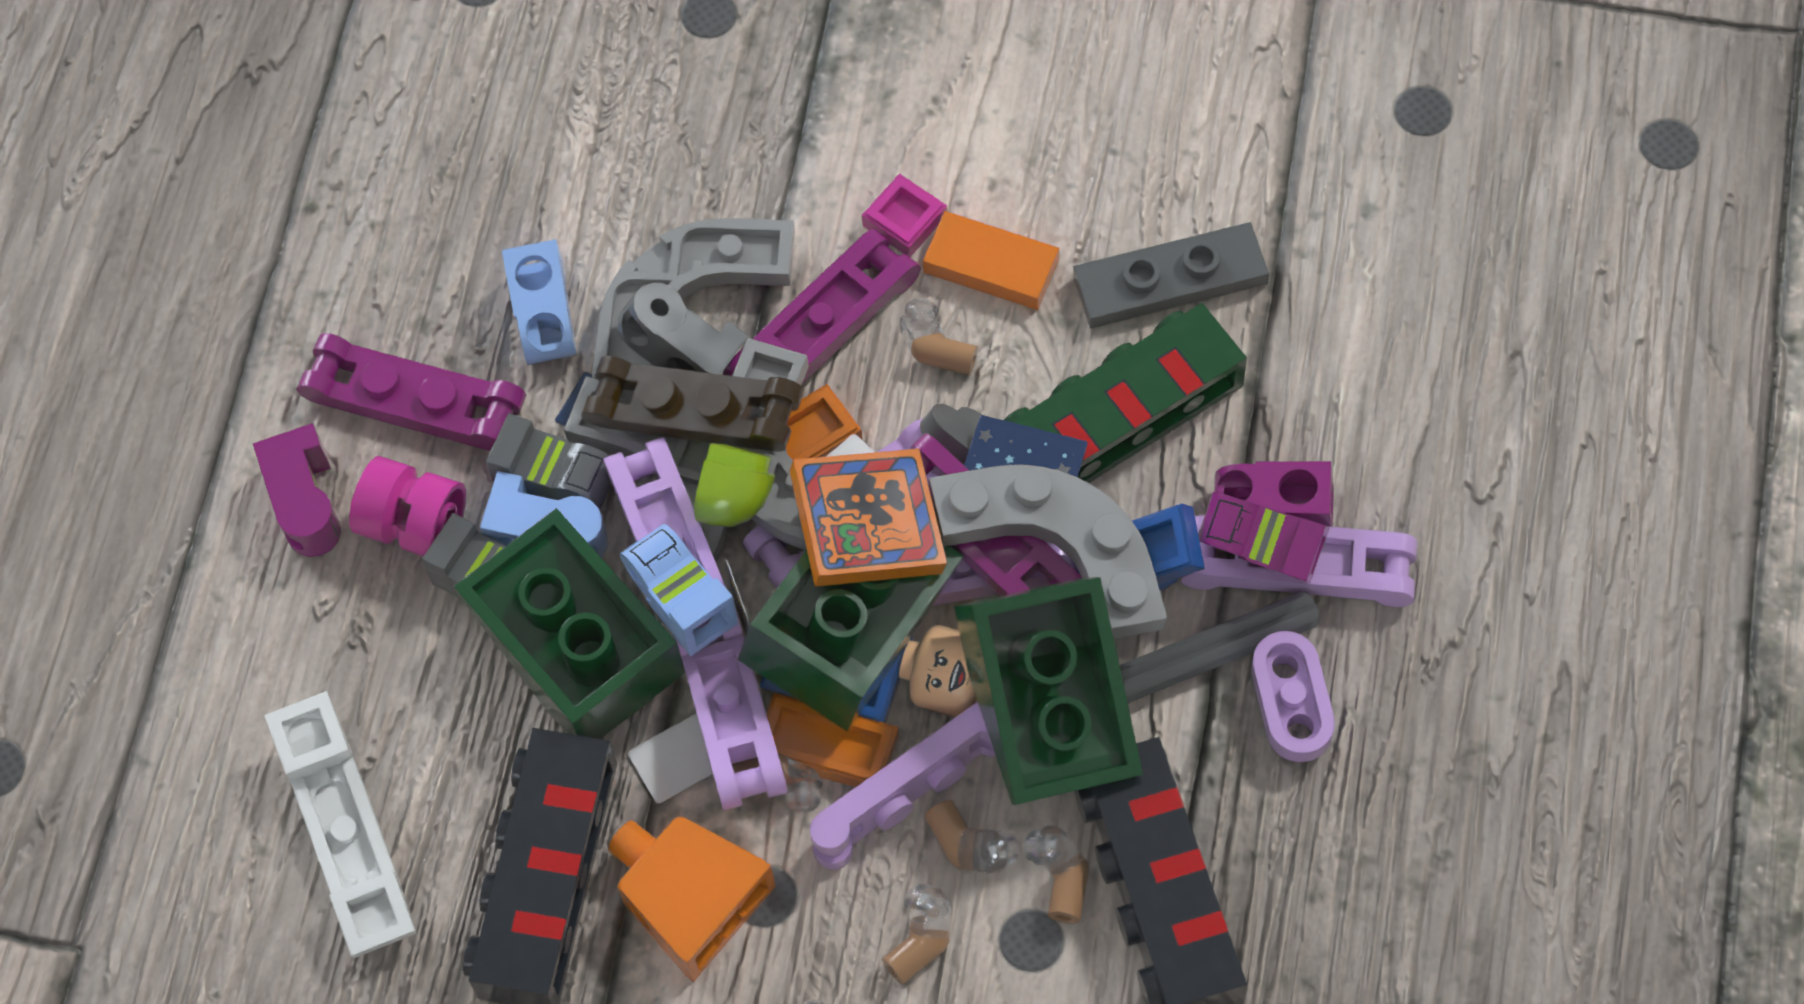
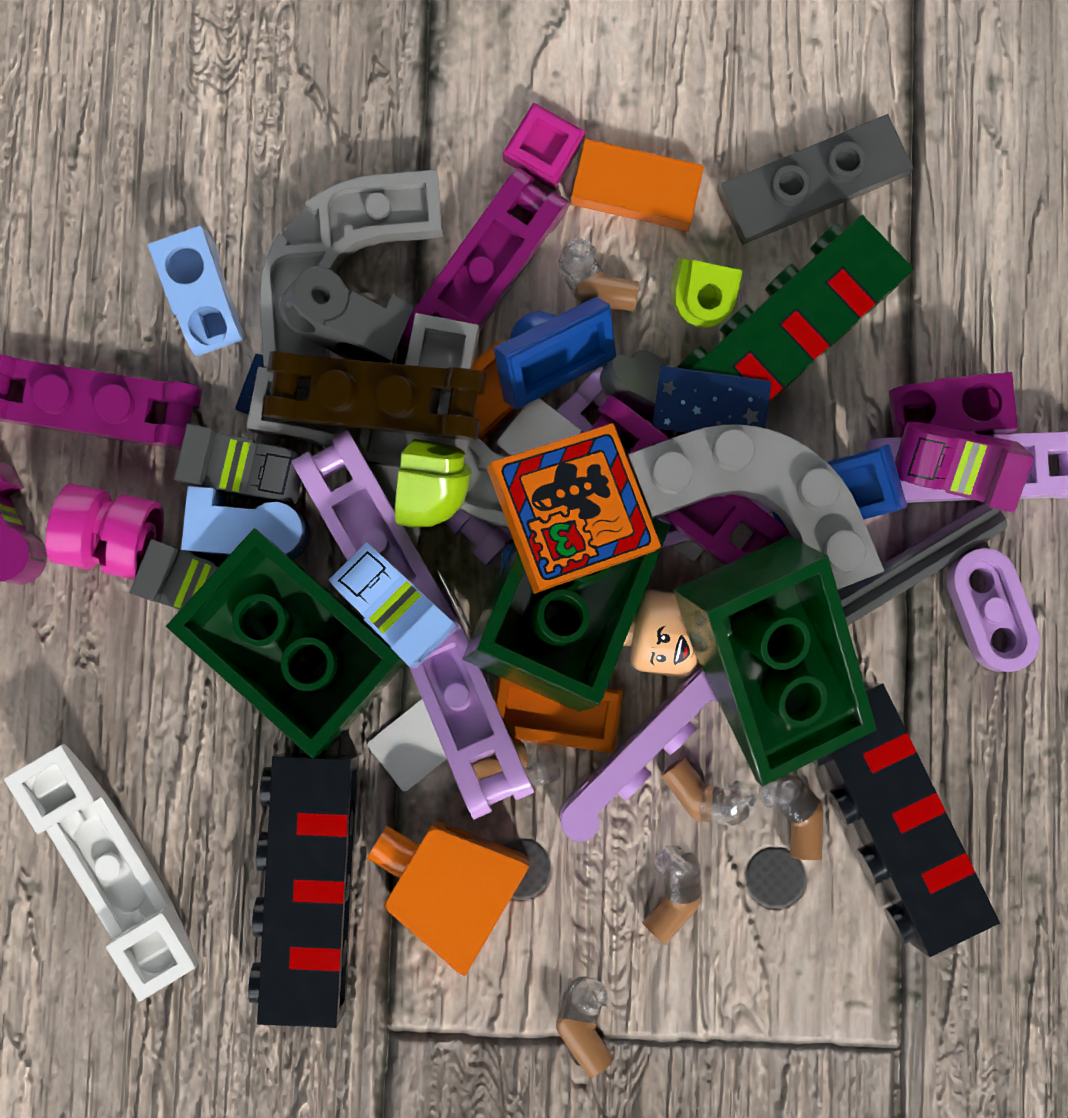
camera: 15 degrees left, 20 degrees up
(879, 394) = (554, 350): none -> blue tile
(1038, 357) = (703, 291): none -> lime piece

